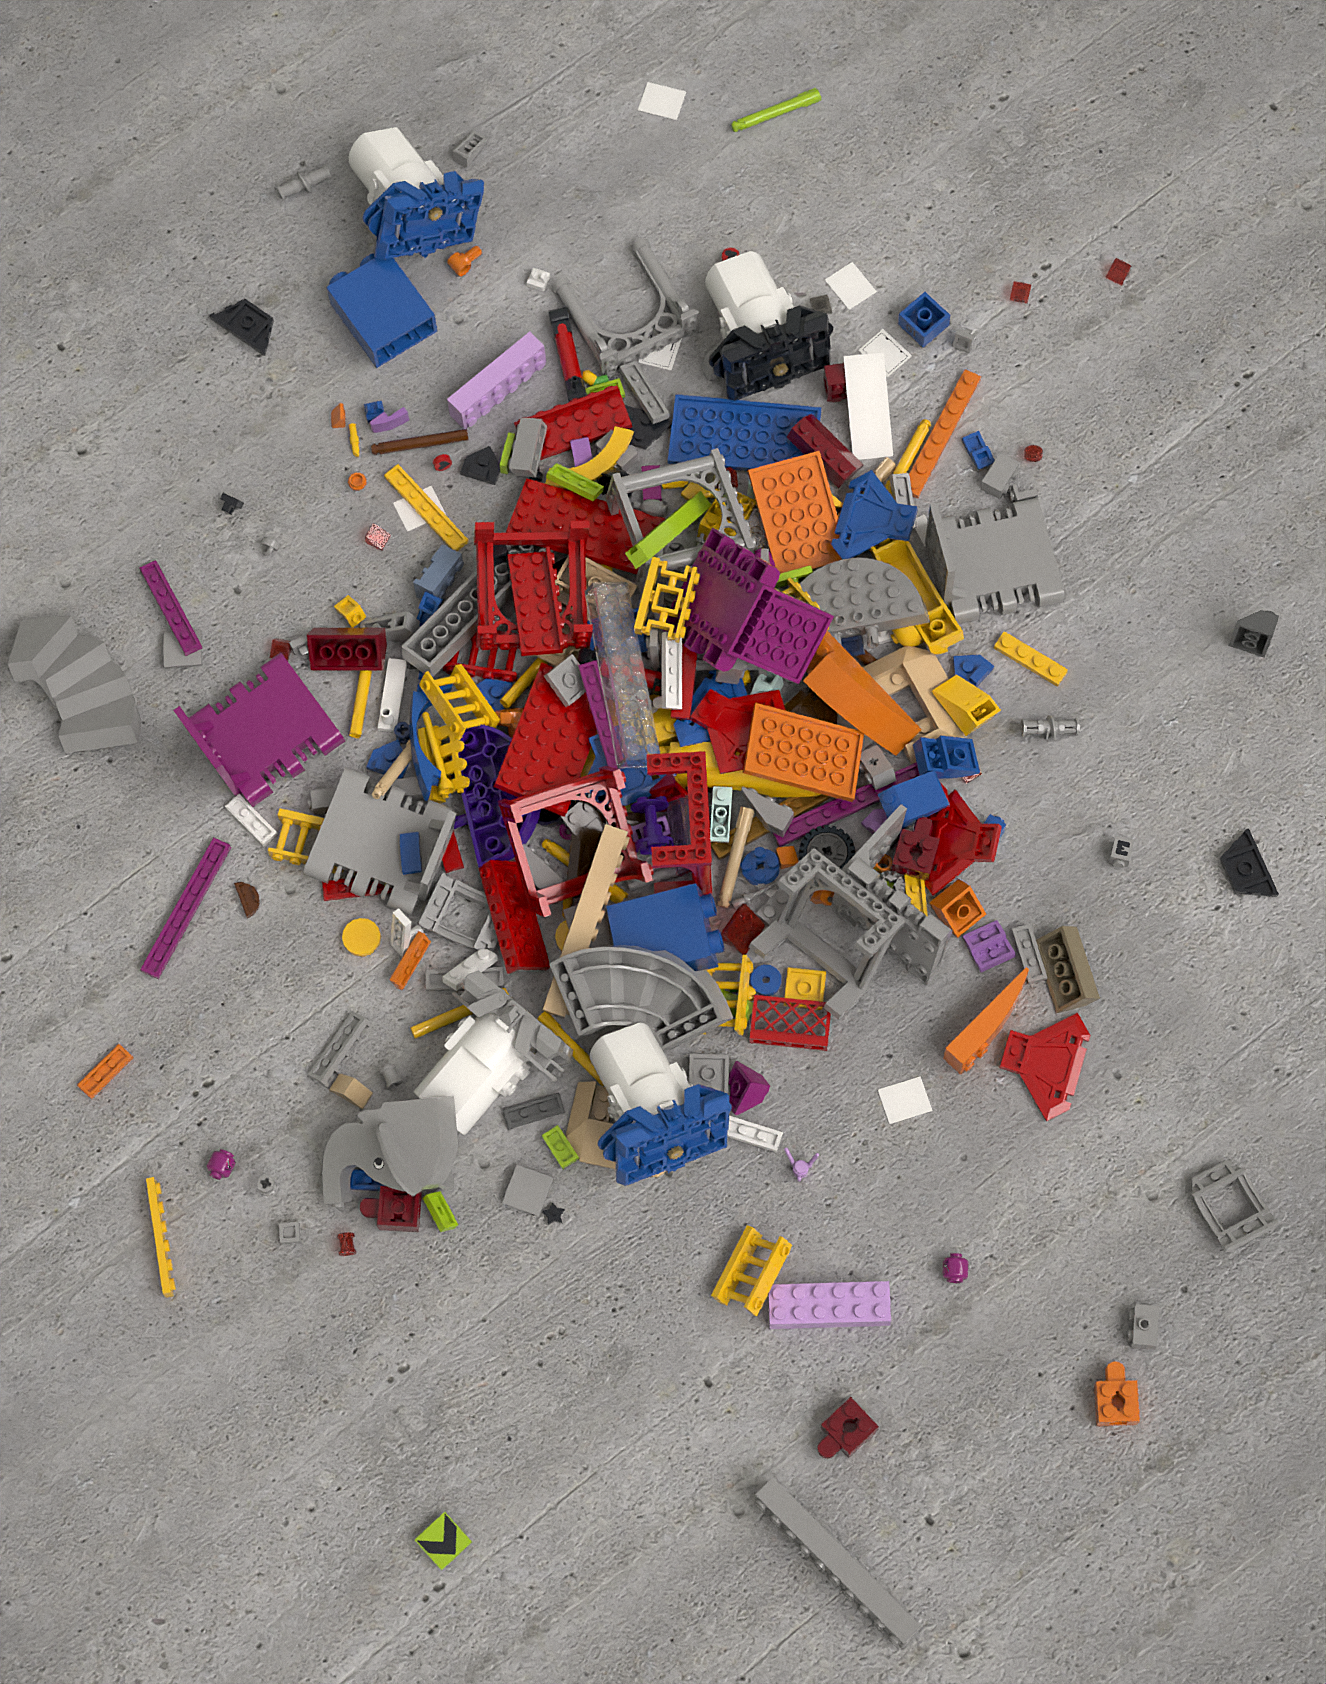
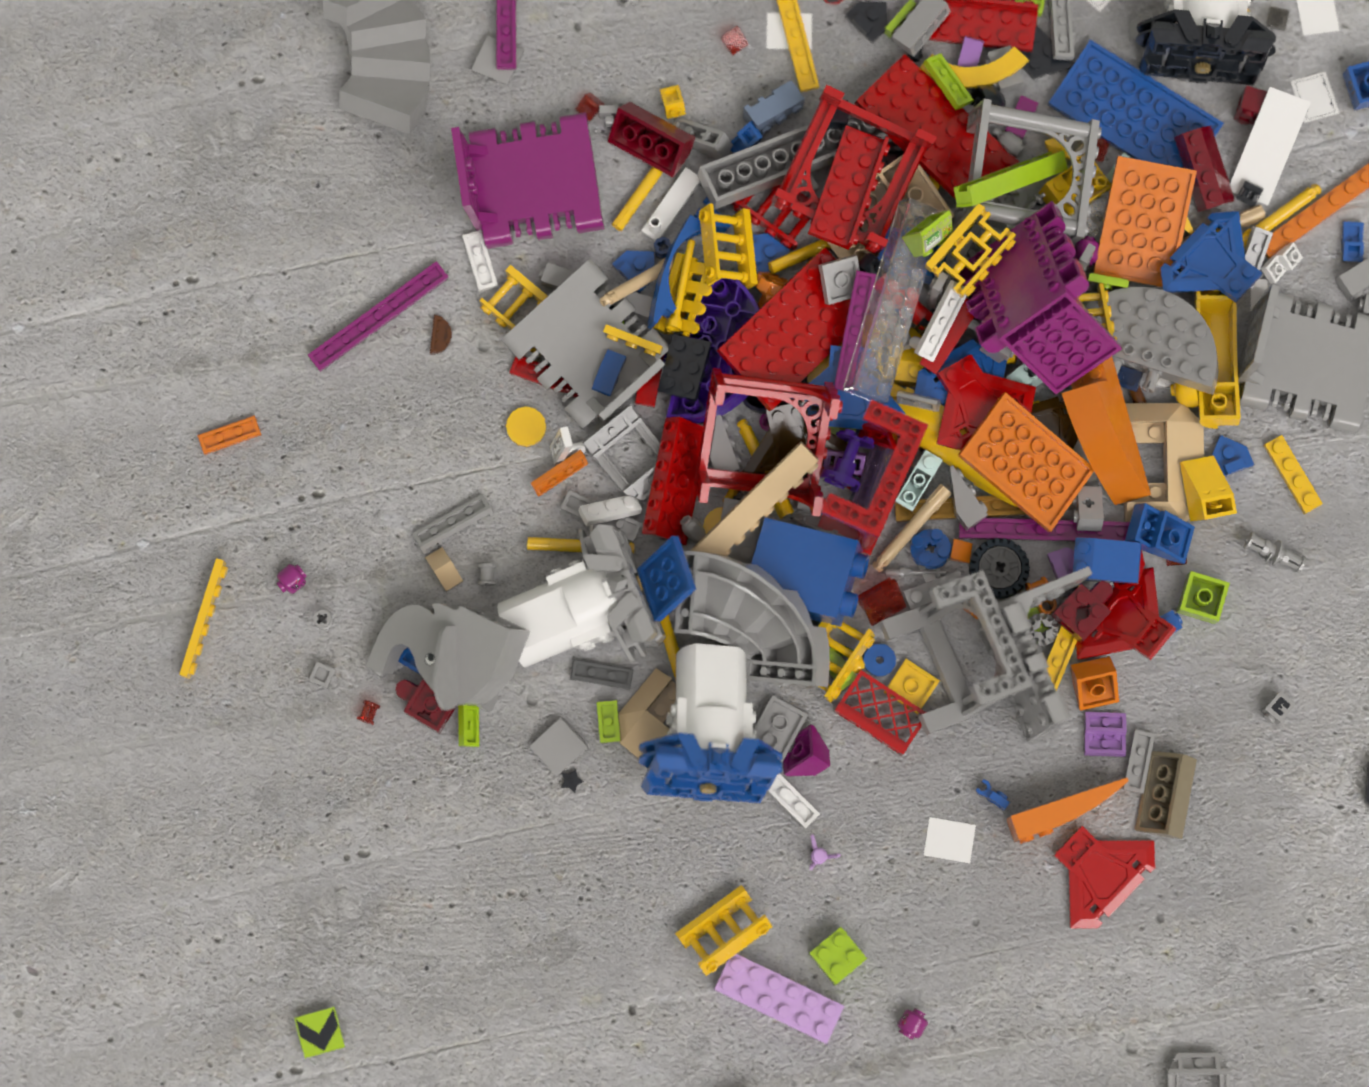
camera: 20 degrees right, 10 degrees up
(417, 815) = (632, 341): none -> yellow plate
(473, 818) = (684, 367): none -> black plate
(548, 993) = (666, 578): none -> blue plate
(549, 949) = (692, 528): none -> light grey plant
(624, 602) = (929, 233): none -> lime slope
(687, 745) = (918, 401): none -> light grey slope
(861, 1244) = (837, 956): none -> lime brick
(873, 452) = (1249, 193): none -> black tile
(925, 1044) = (997, 798): none -> blue plate
(929, 493) = (1282, 261): none -> white slope
(1010, 792) = (1203, 597): none -> lime brick

